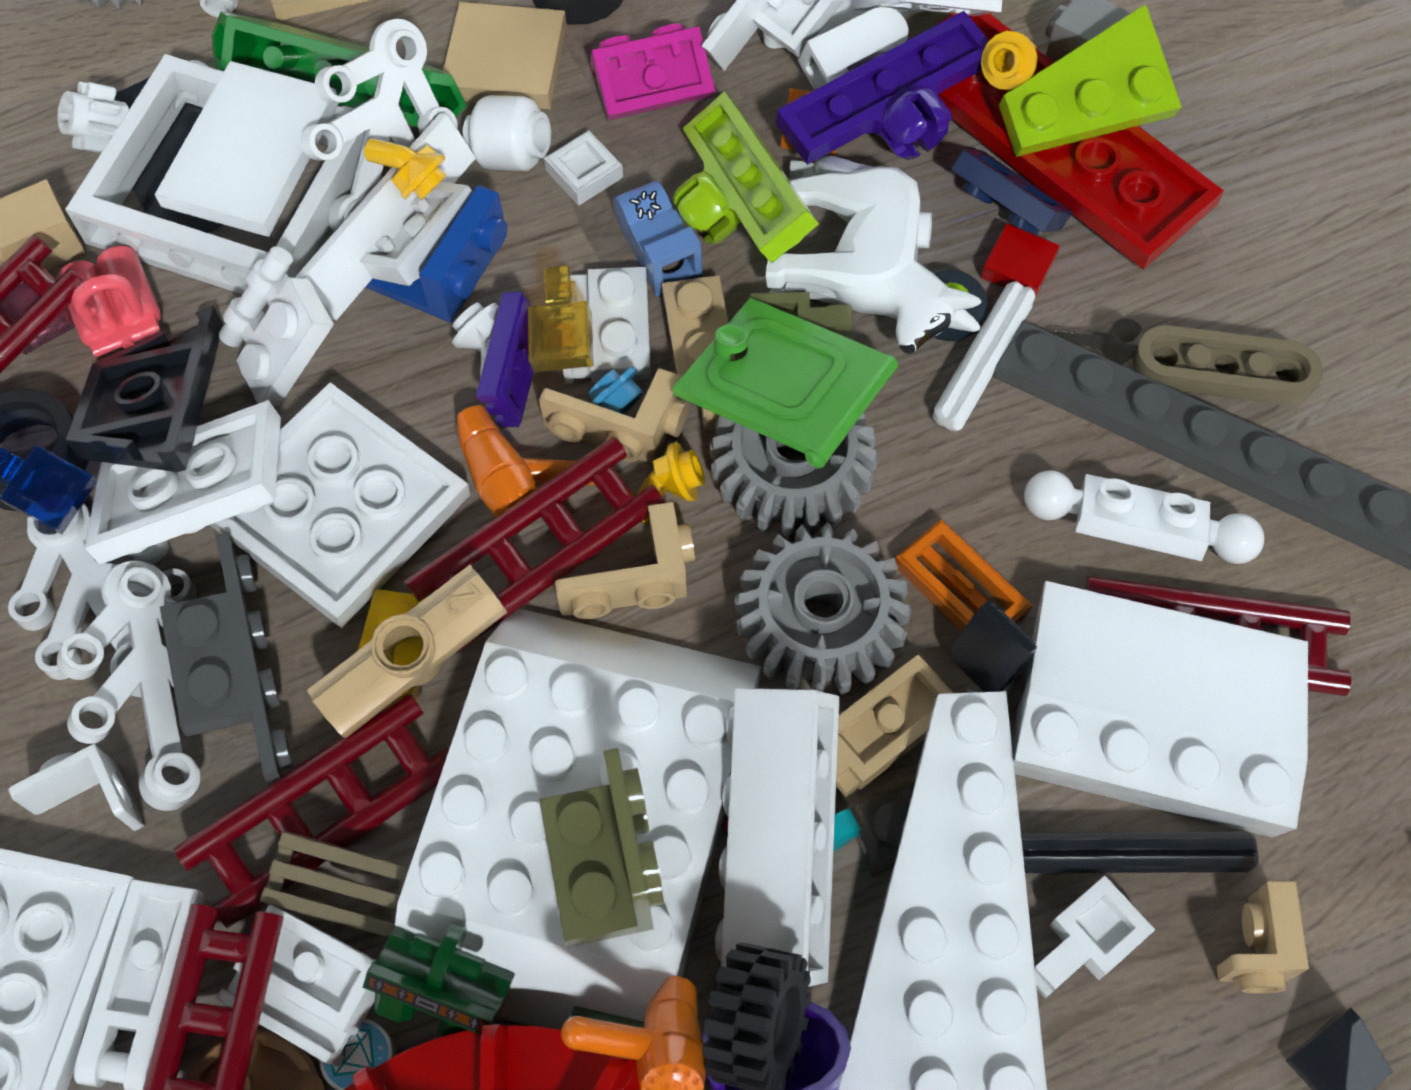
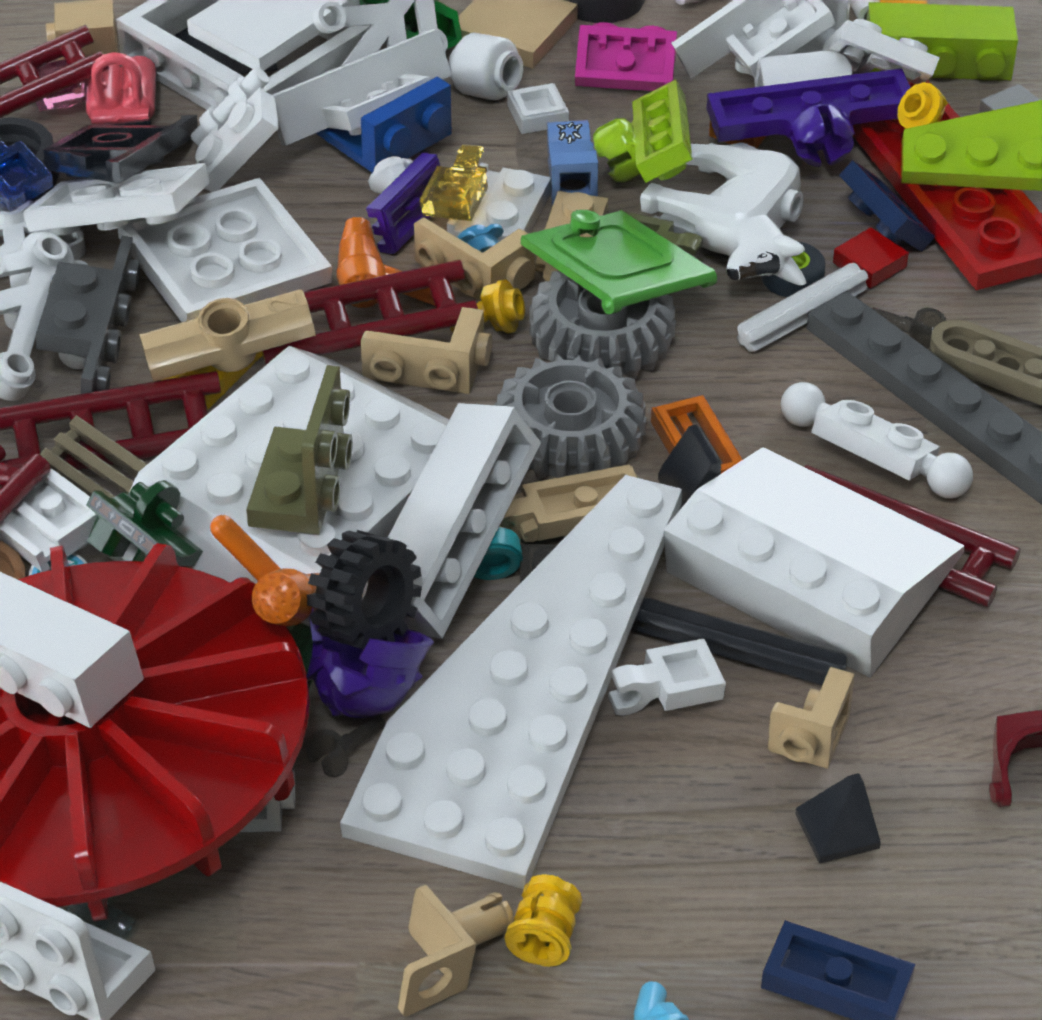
camera: 20 degrees right, 20 degrees down
(417, 171) = (390, 57): yellow plate -> none

